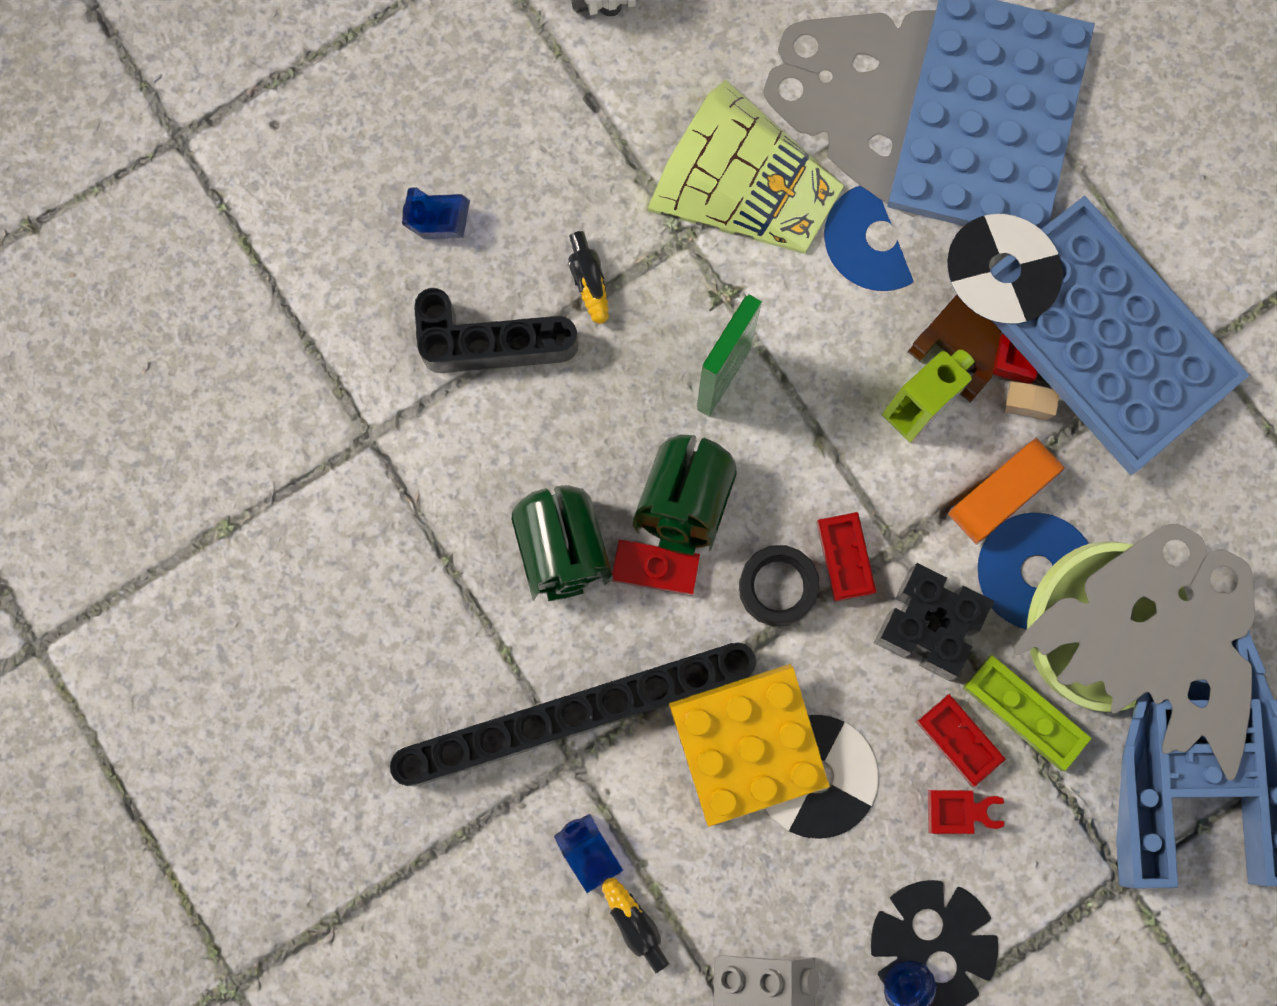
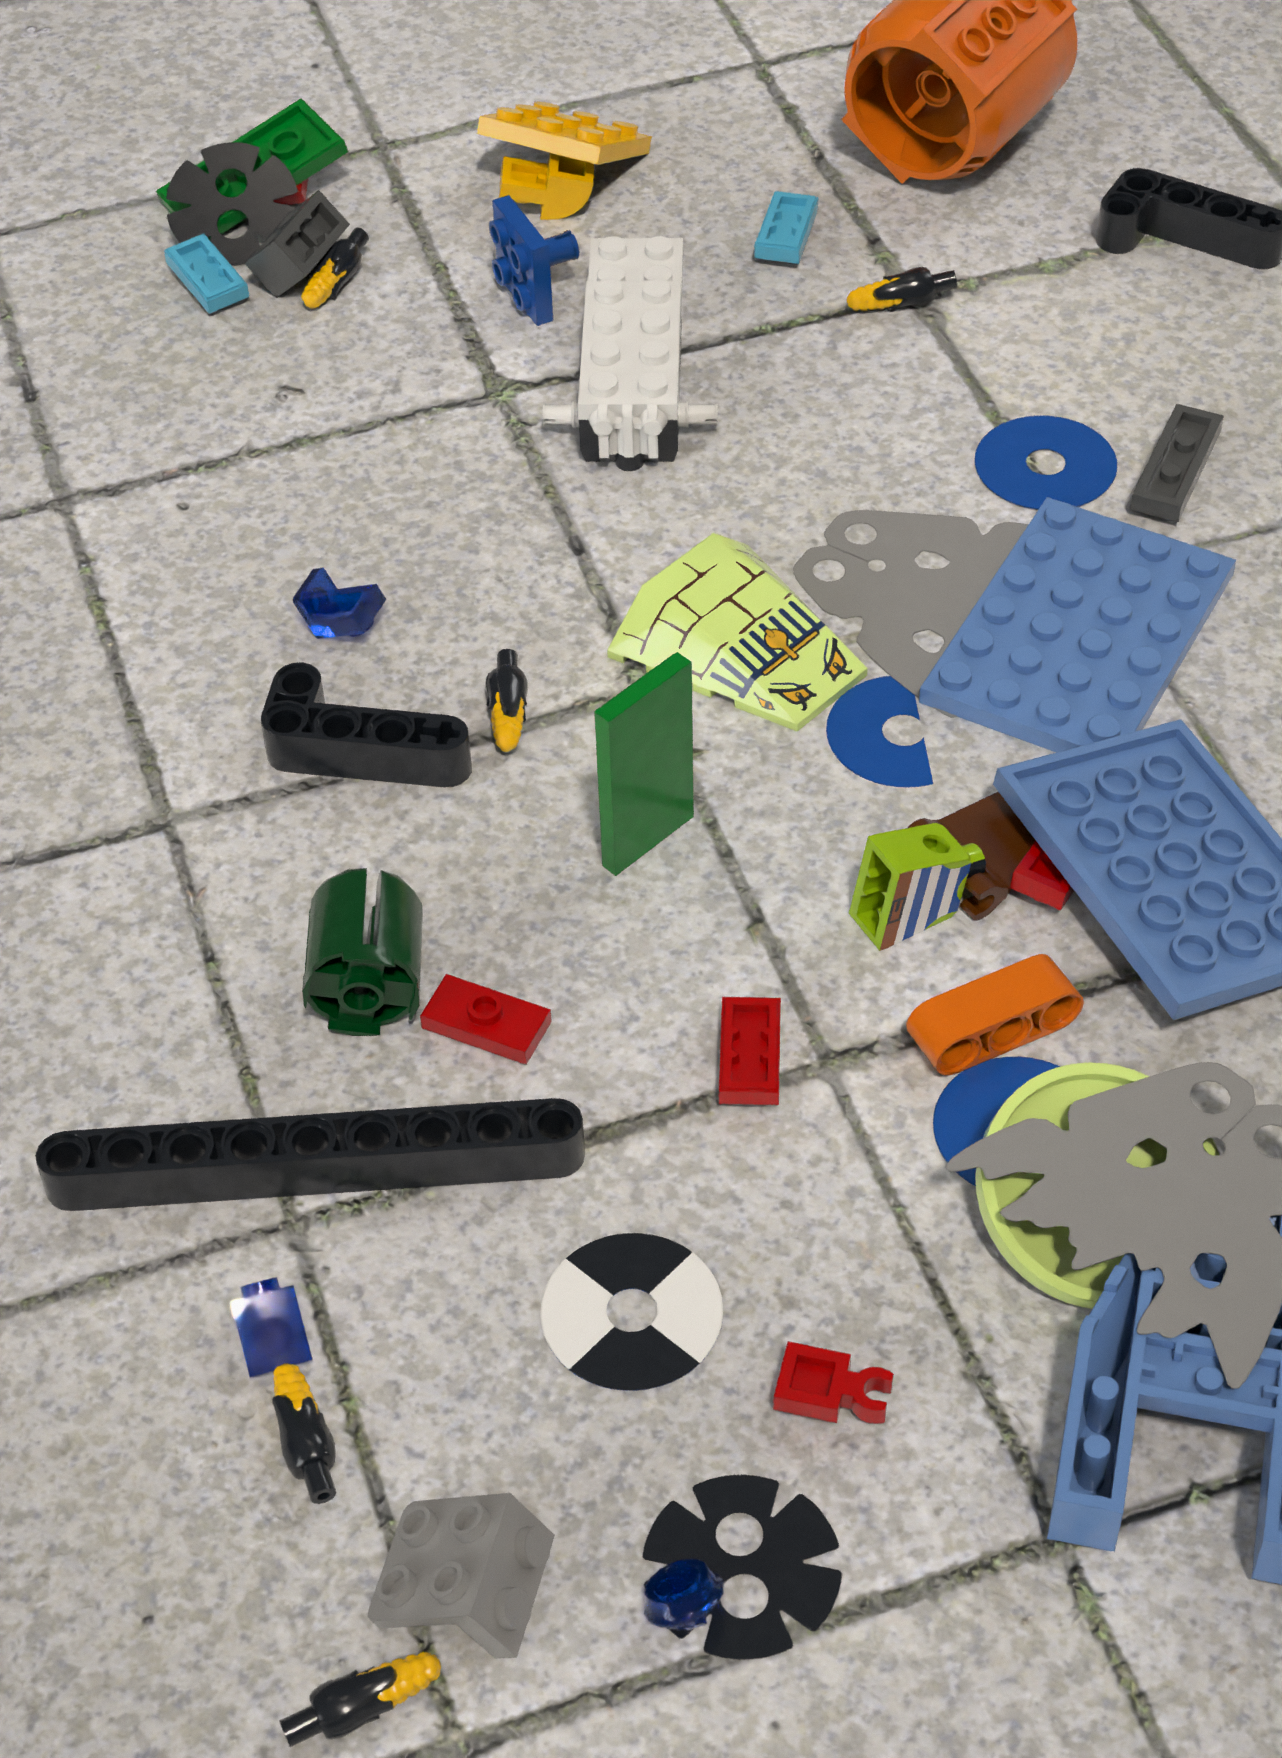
camera: 15 degrees right, 30 degrees down
(686, 494) = (547, 922): dark green cylinder -> none
(749, 745) = (541, 1231): yellow plate -> none
(801, 563) = (645, 1027): black tyre -> none
(959, 614) = (848, 1140): black brick -> none
(960, 740) = (852, 1297): red plate -> none
(980, 291) = (1097, 763): sticker -> none
(1027, 713) = (958, 1282): lime plate -> none
(1031, 401) = (1054, 924): tan piece -> none

